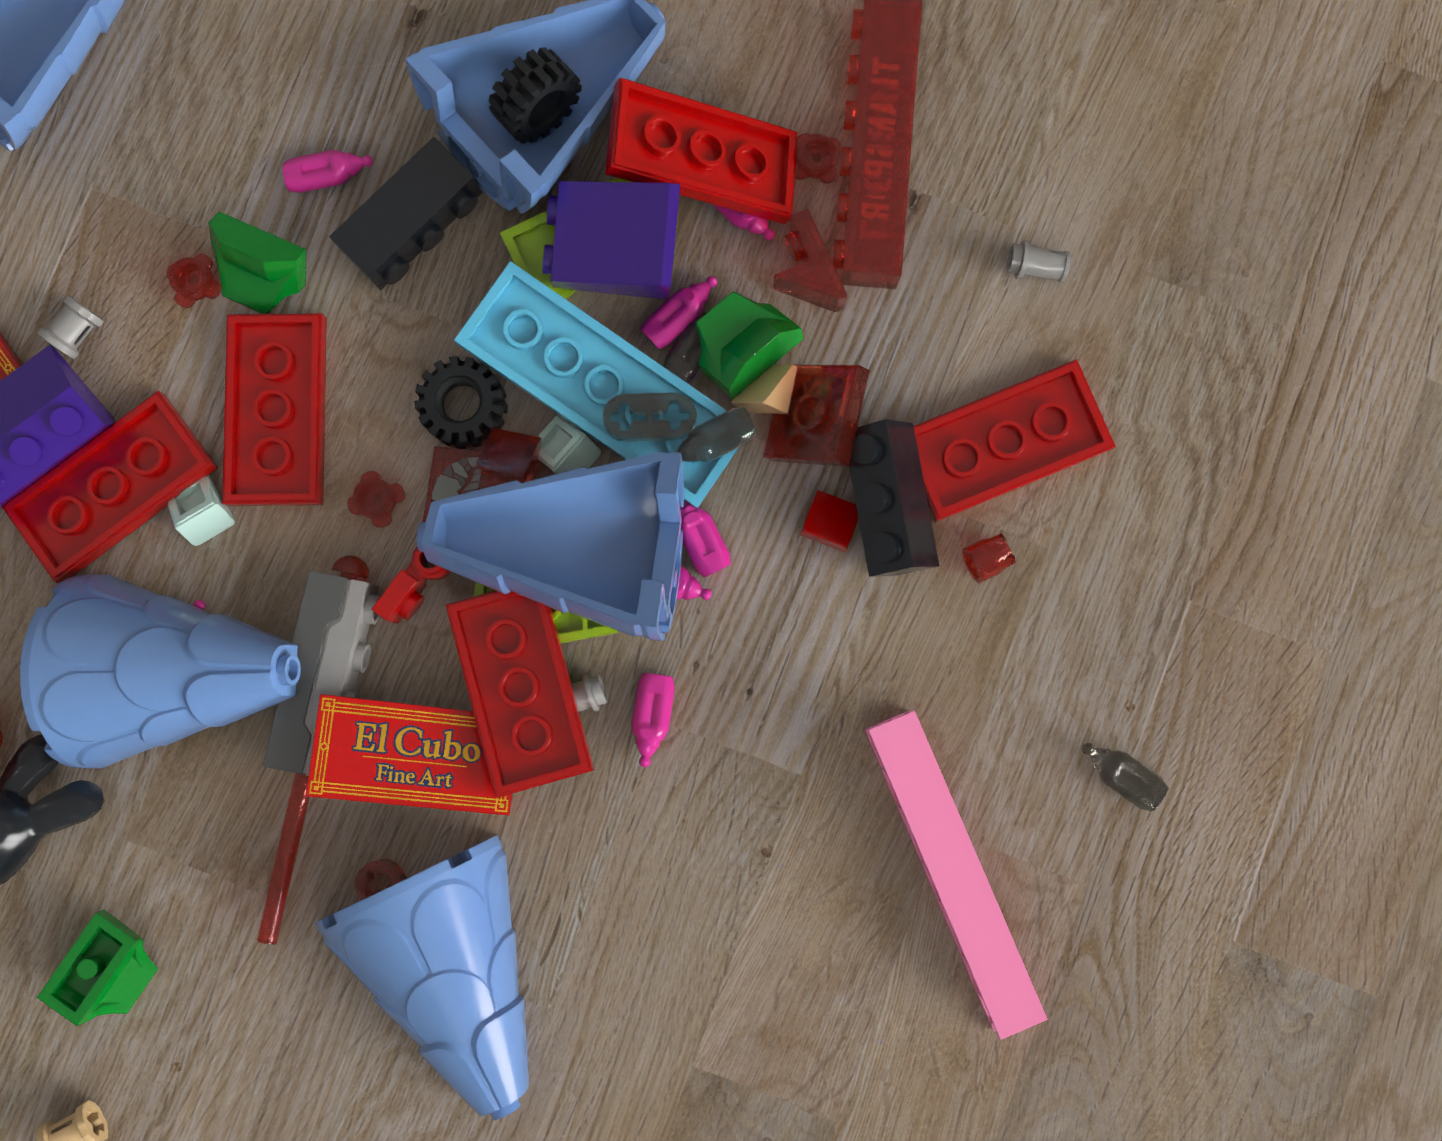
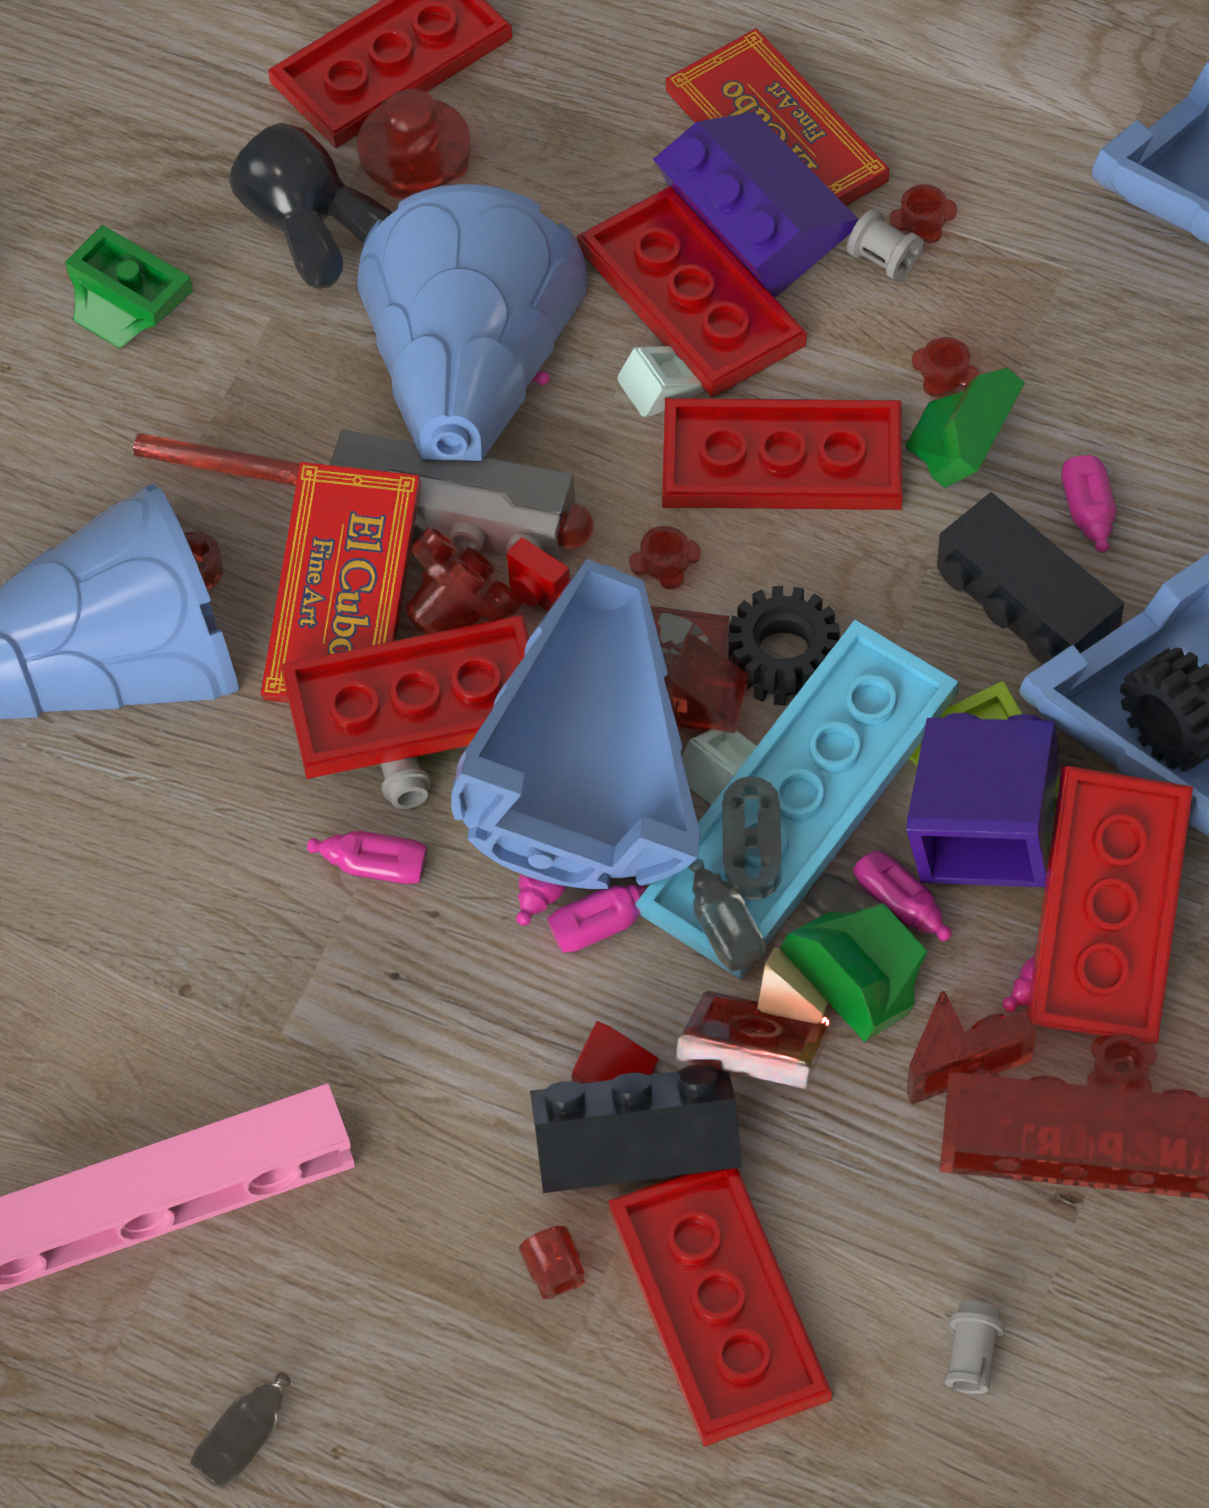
camera: 90 degrees right, 25 degrees down
(23, 294) = (927, 201): none -> clear red plate
(415, 659) = (456, 587): none -> clear red plate

